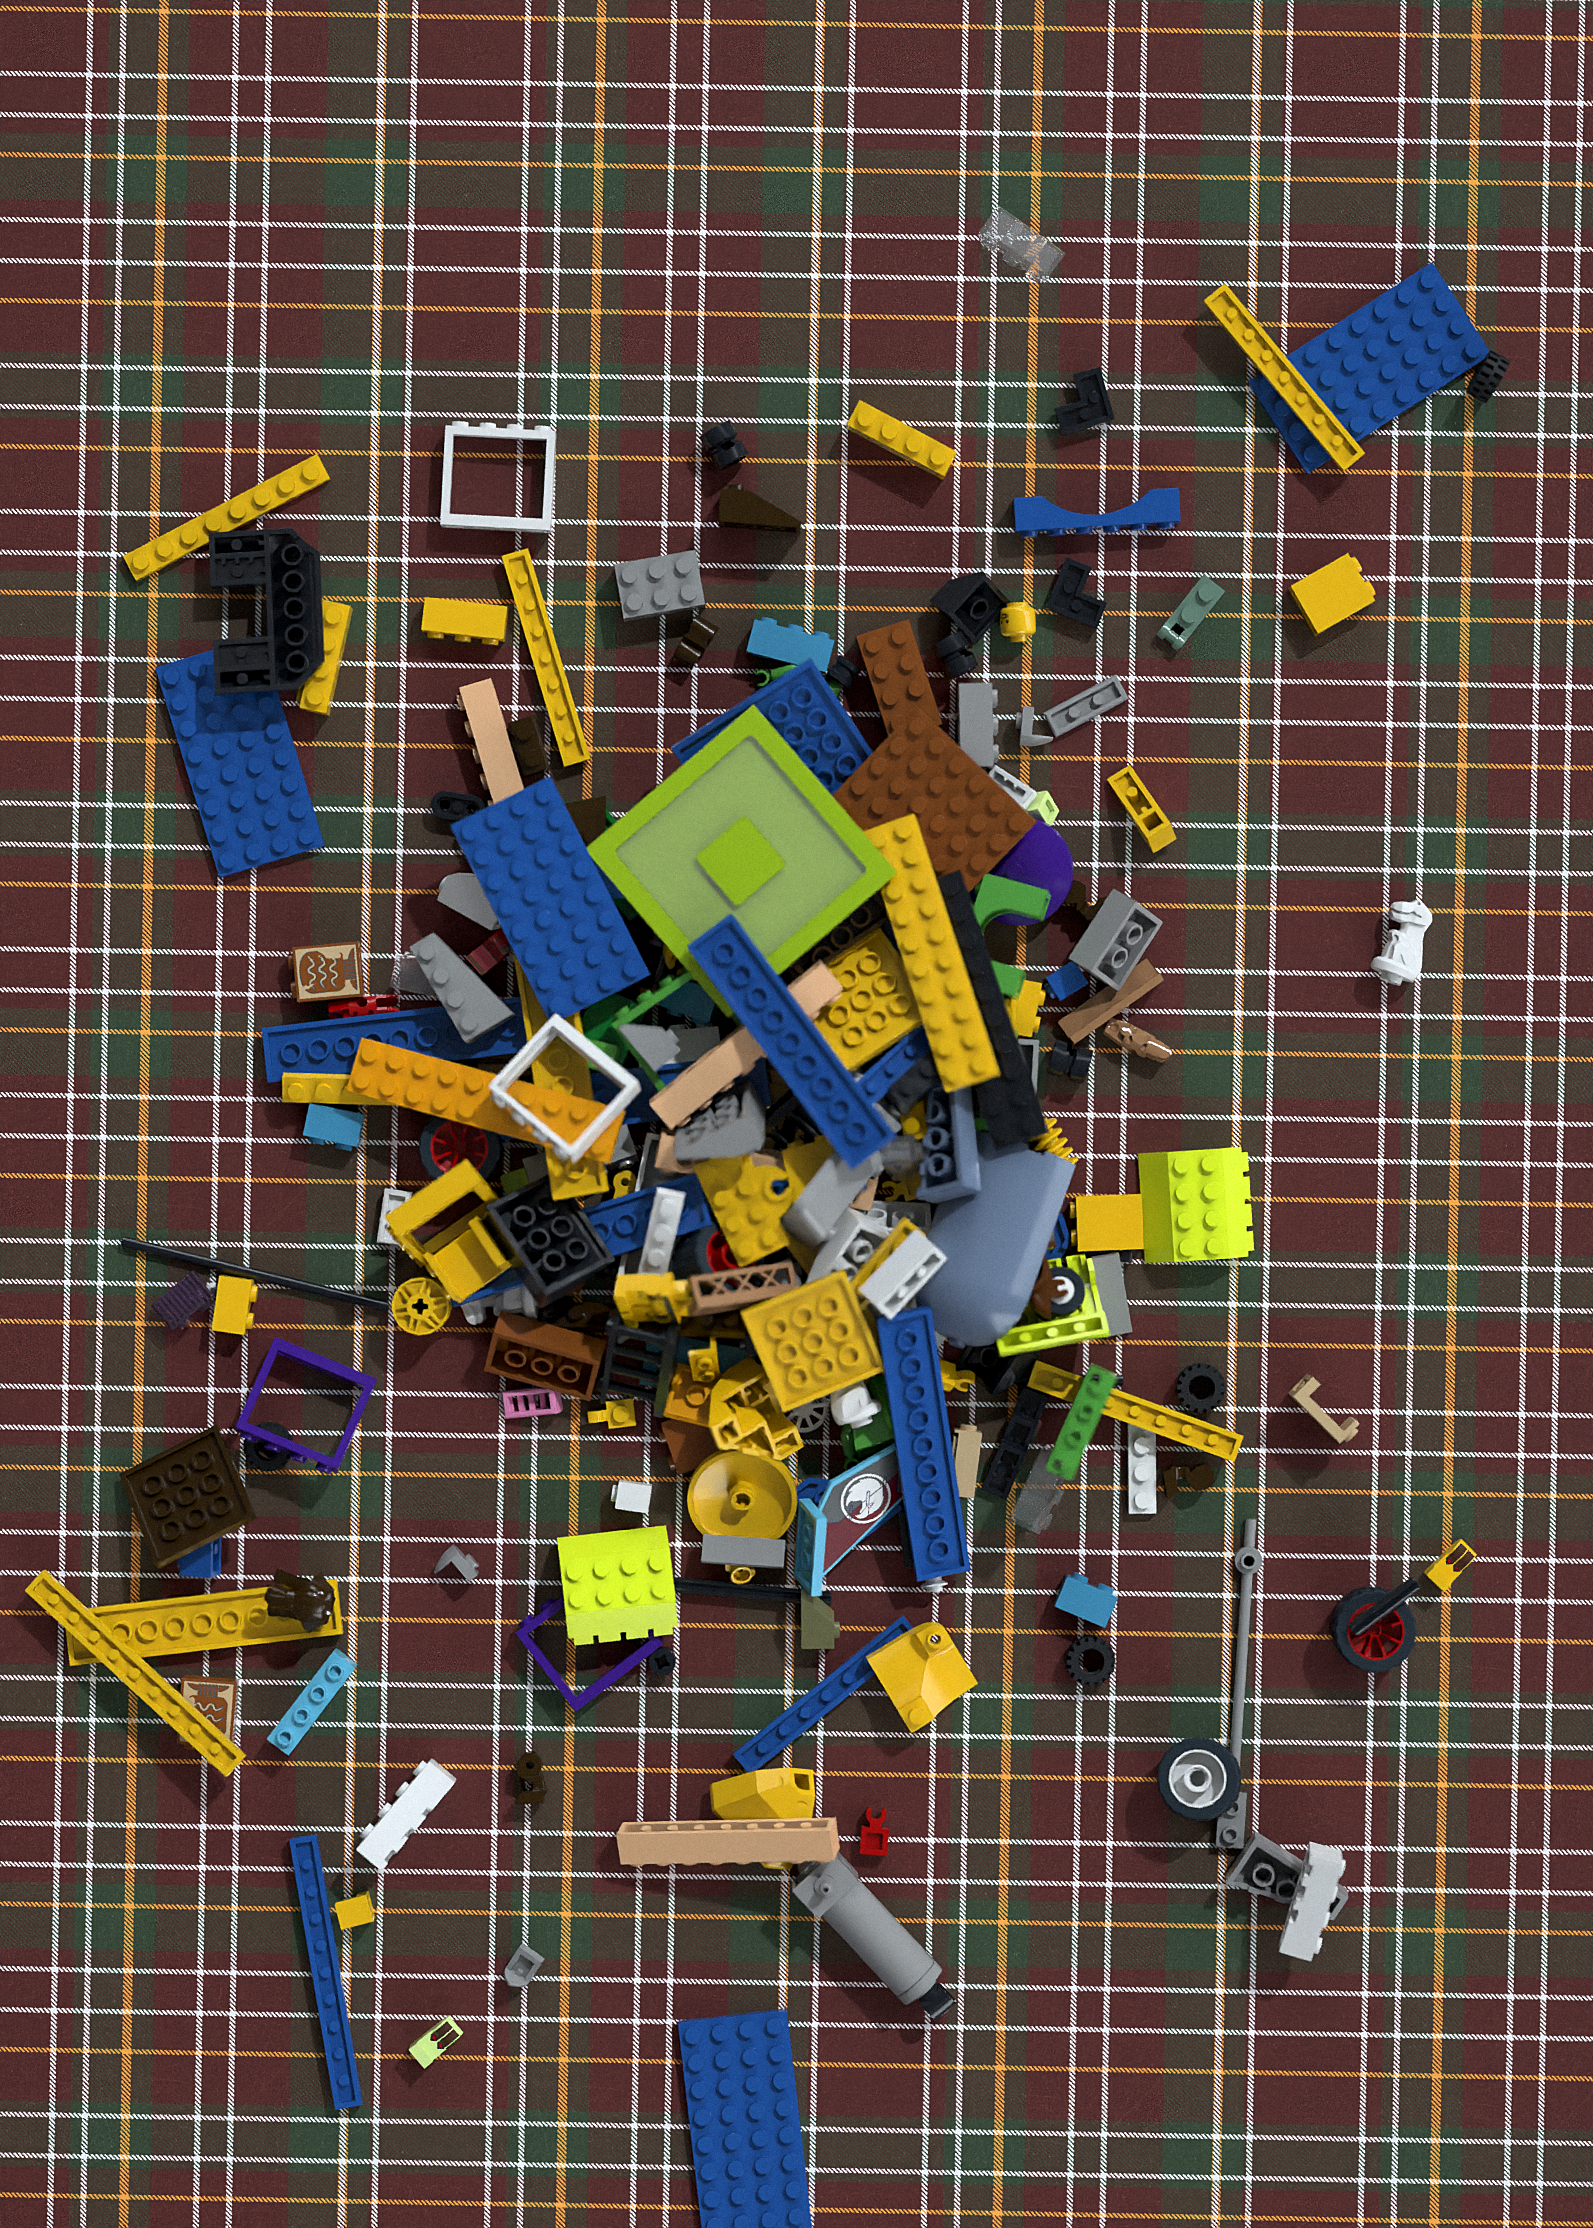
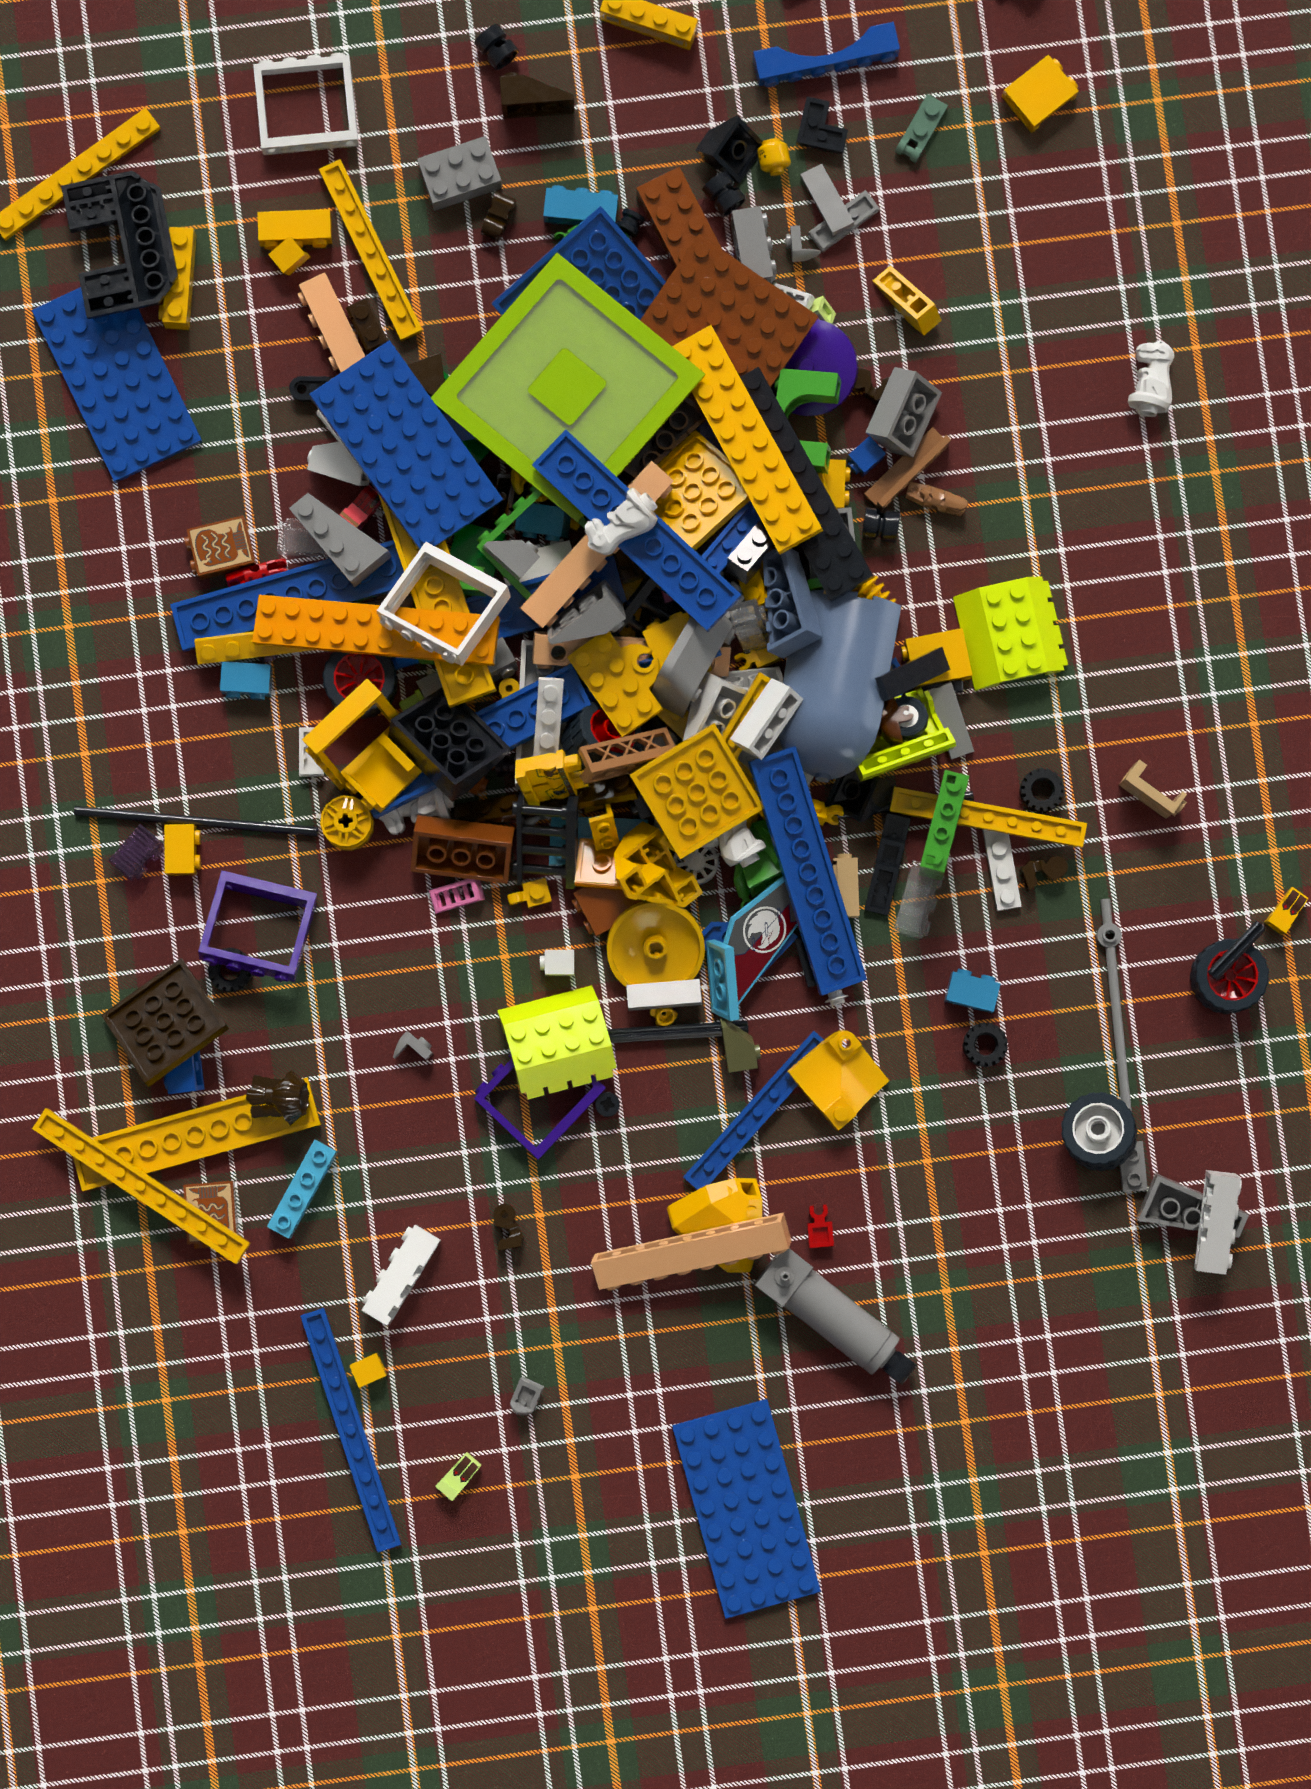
camera: 15 degrees left, 5 degrees down
(452, 652) = (289, 256): none -> yellow panel
(783, 1033) = (627, 521): none -> white animal
(1070, 679) = (827, 199): none -> light grey tile
(1075, 1243) = (912, 673): none -> black tile

